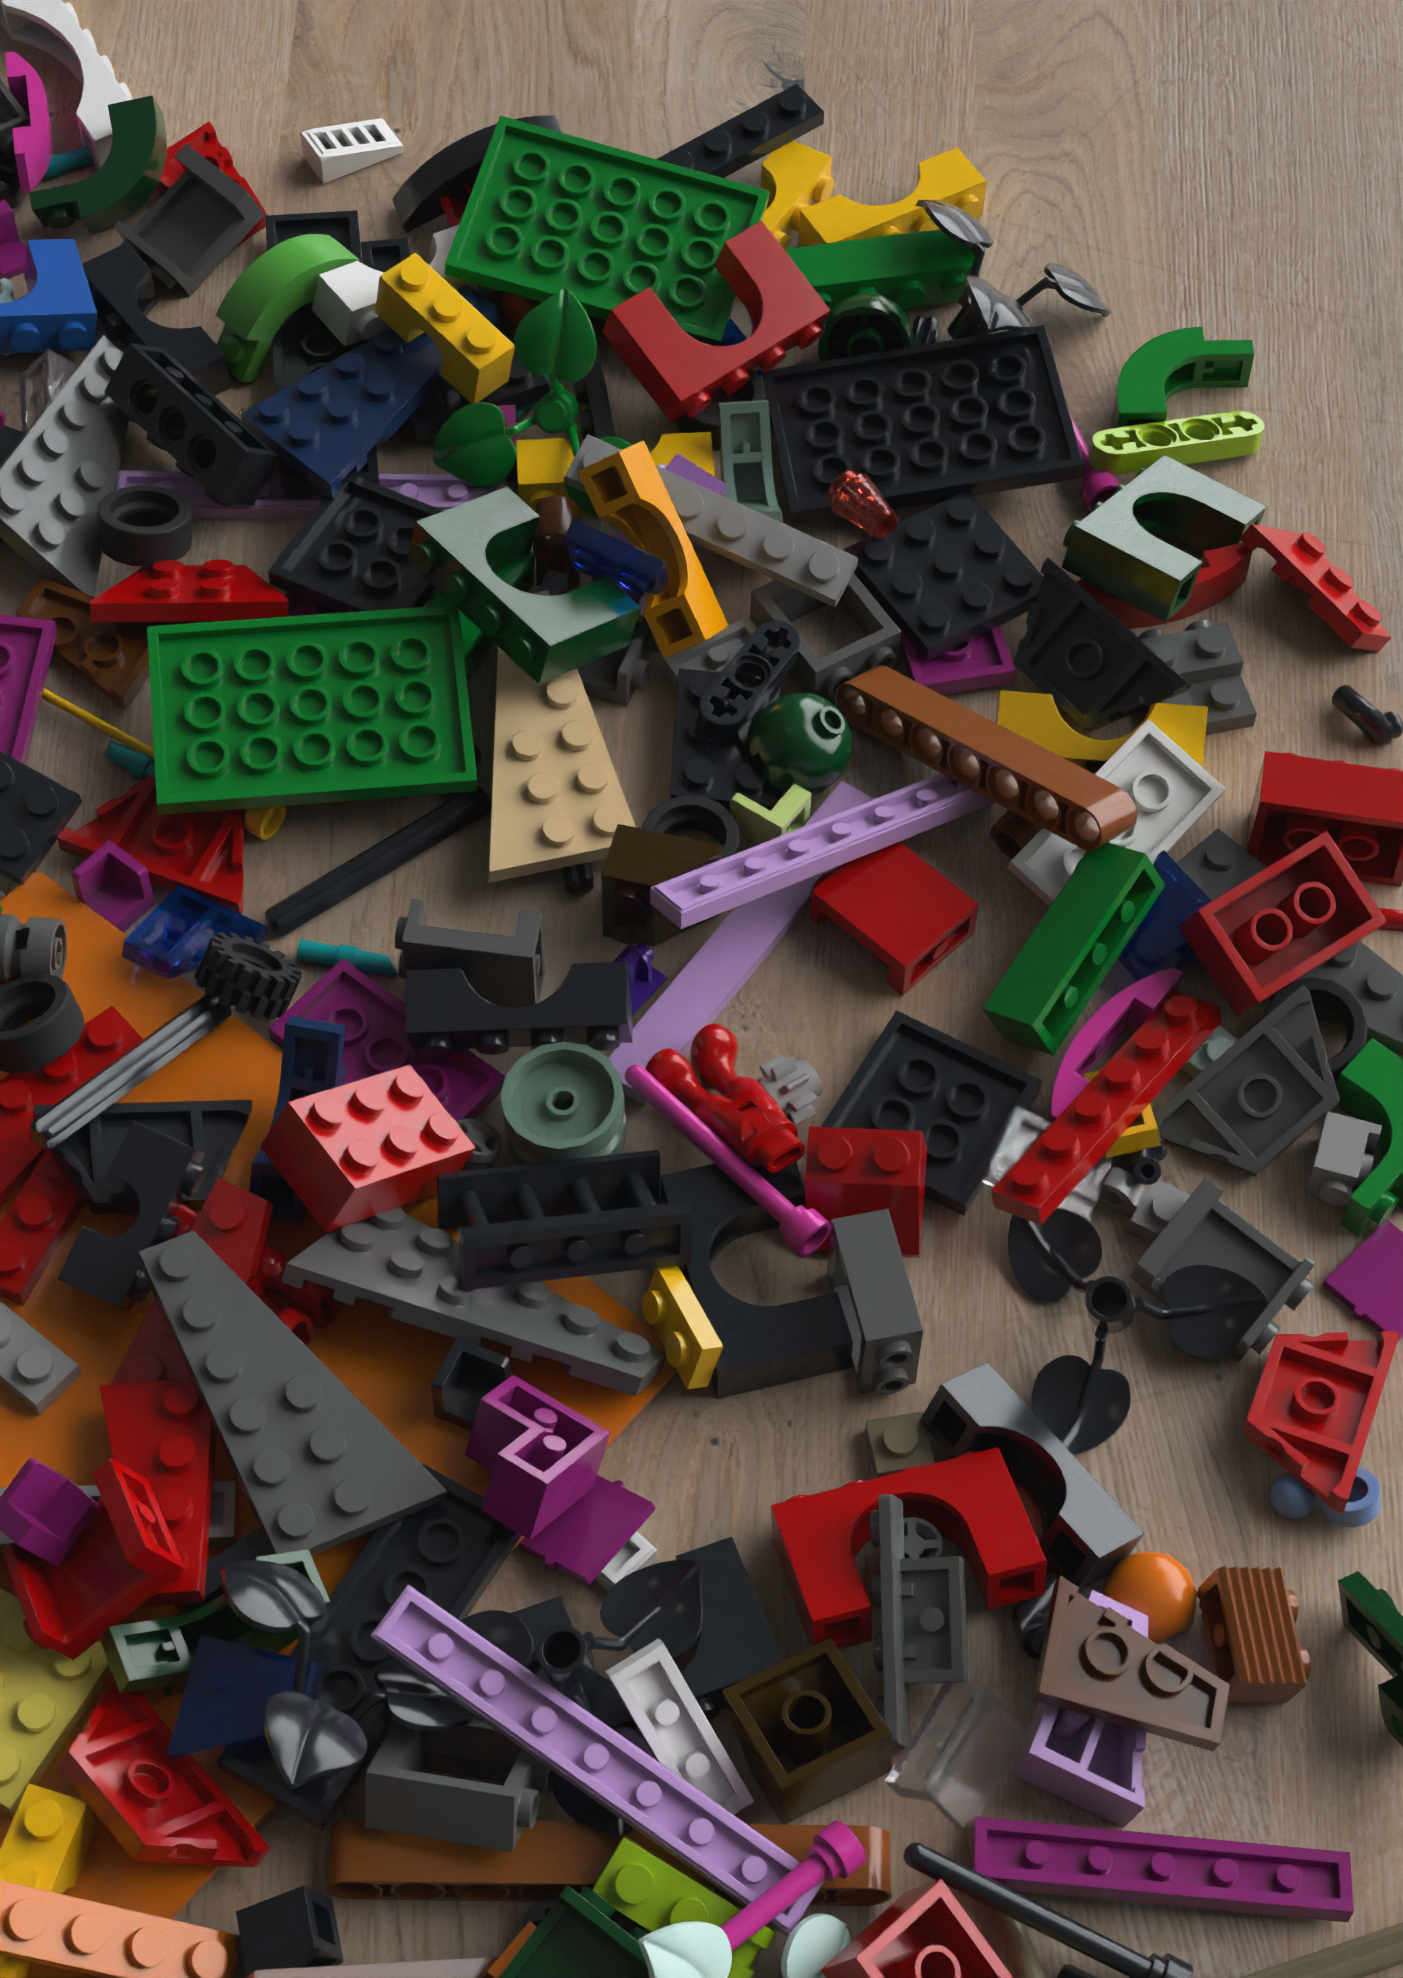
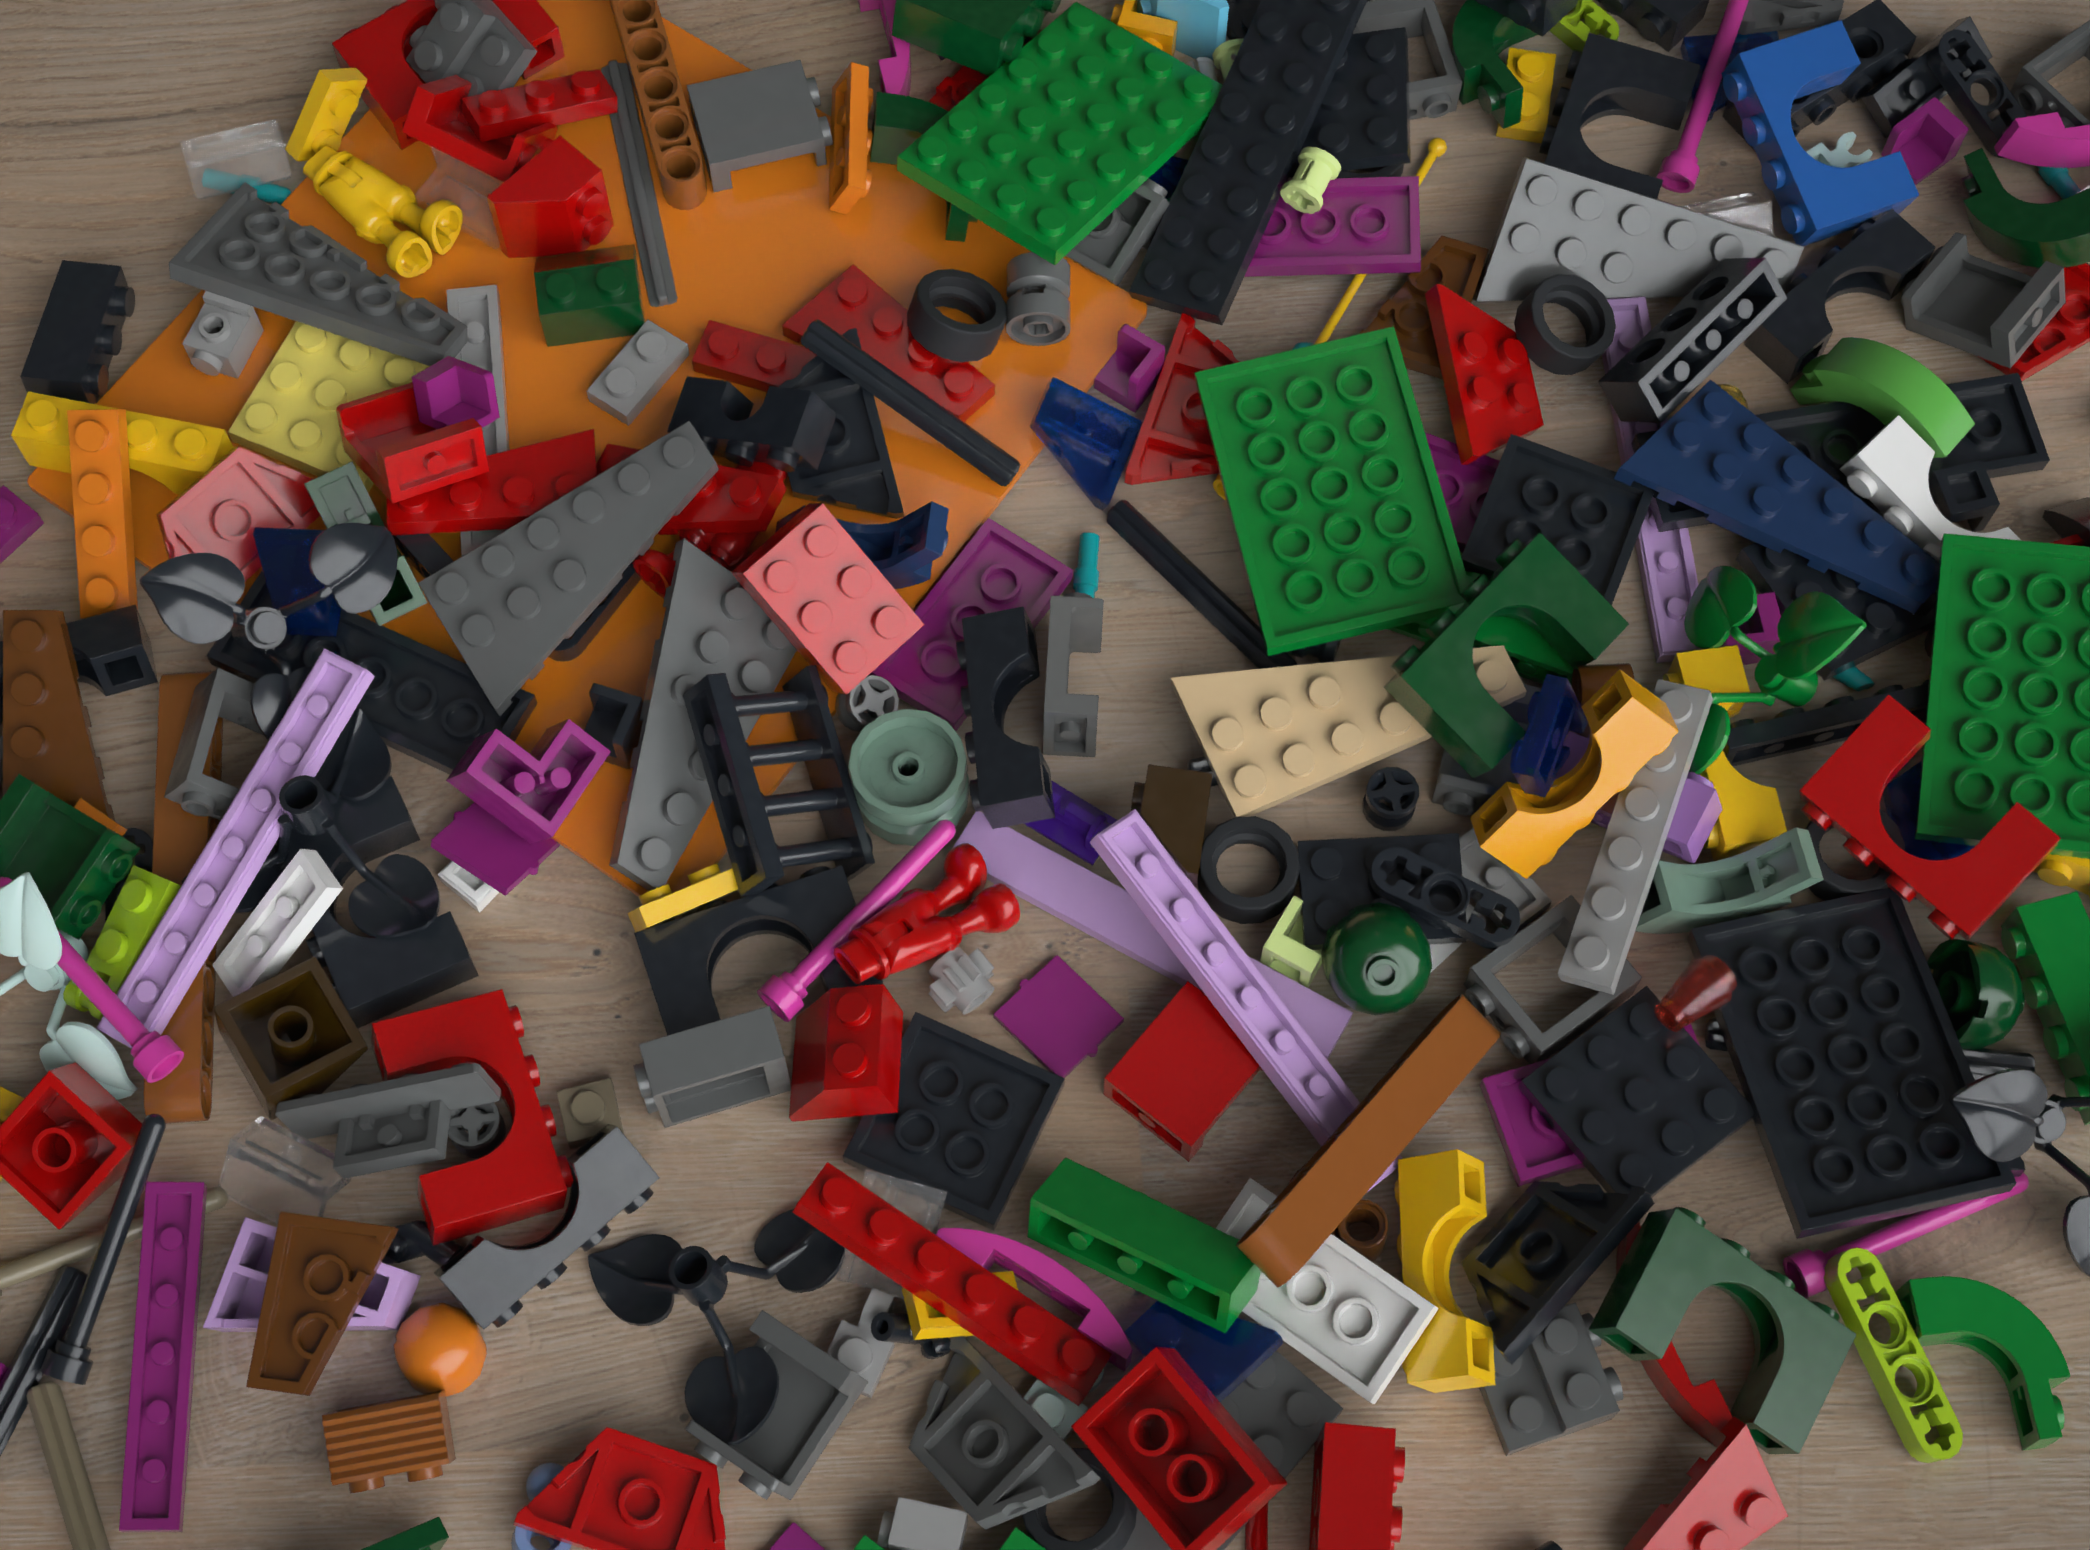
camera: 85 degrees right, 10 degrees up
(247, 975) = (1011, 491): black tyre -> none
(472, 350) = (1854, 535): yellow arch -> none
(636, 718) = (1393, 786): none -> black wheel
(823, 1022) = (1058, 1017): none -> magenta piece

